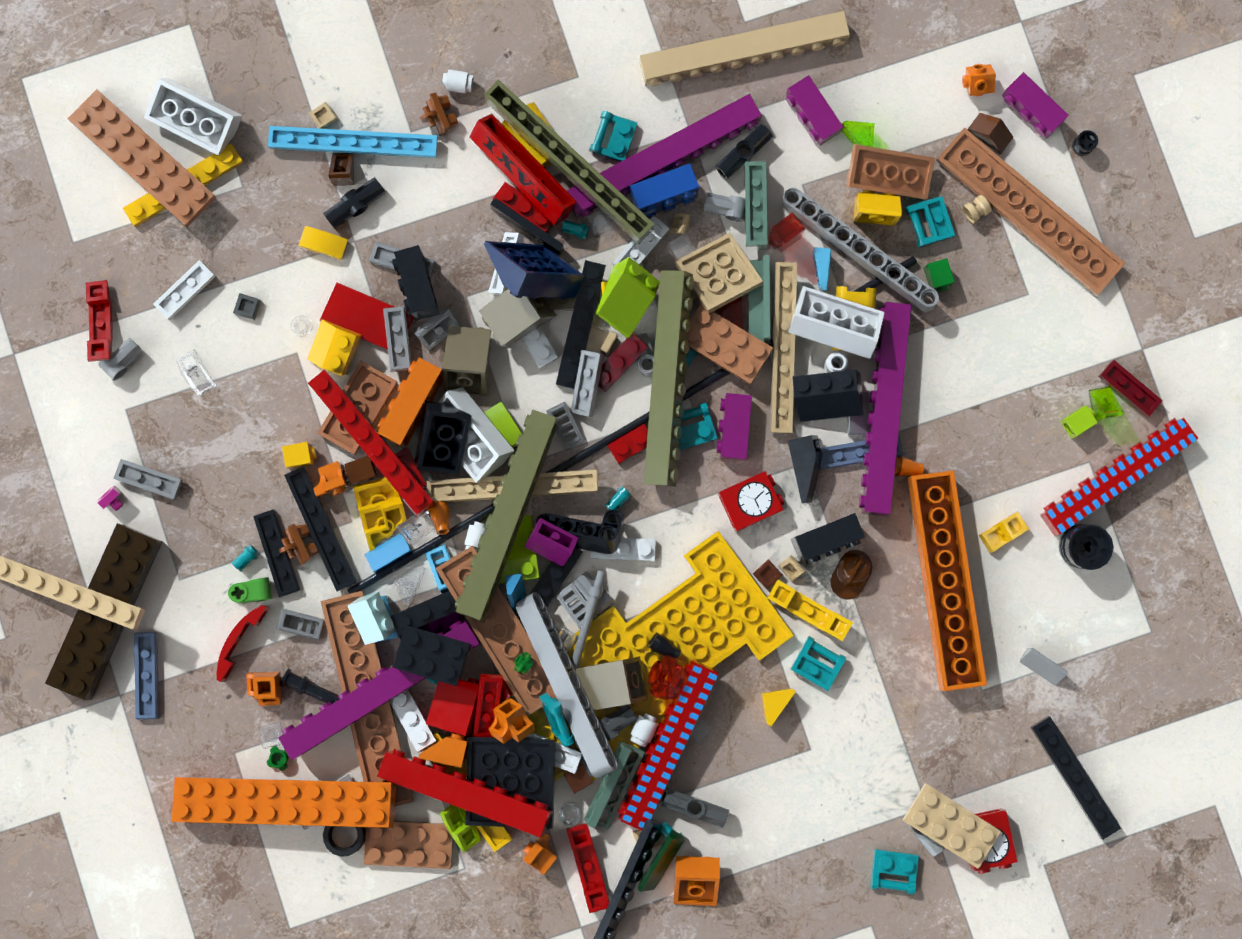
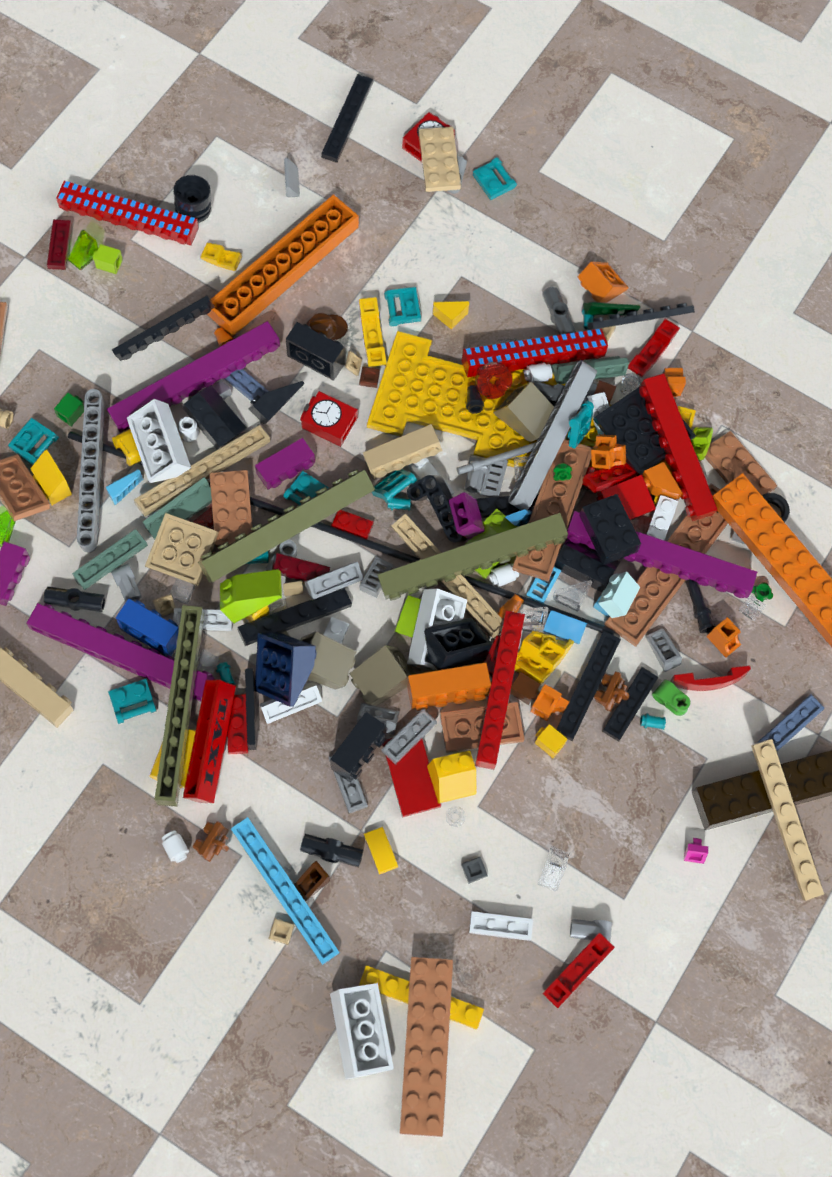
camera: 130 degrees left, 15 degrees down
(148, 479) = (659, 836): light grey plate -> none
(643, 506) = (393, 484): none -> teal plate
(662, 538) = (402, 451): none -> tan brick
(786, 233) = (115, 523): clear red brick -> none
(954, 421) = (163, 328): none -> black plate

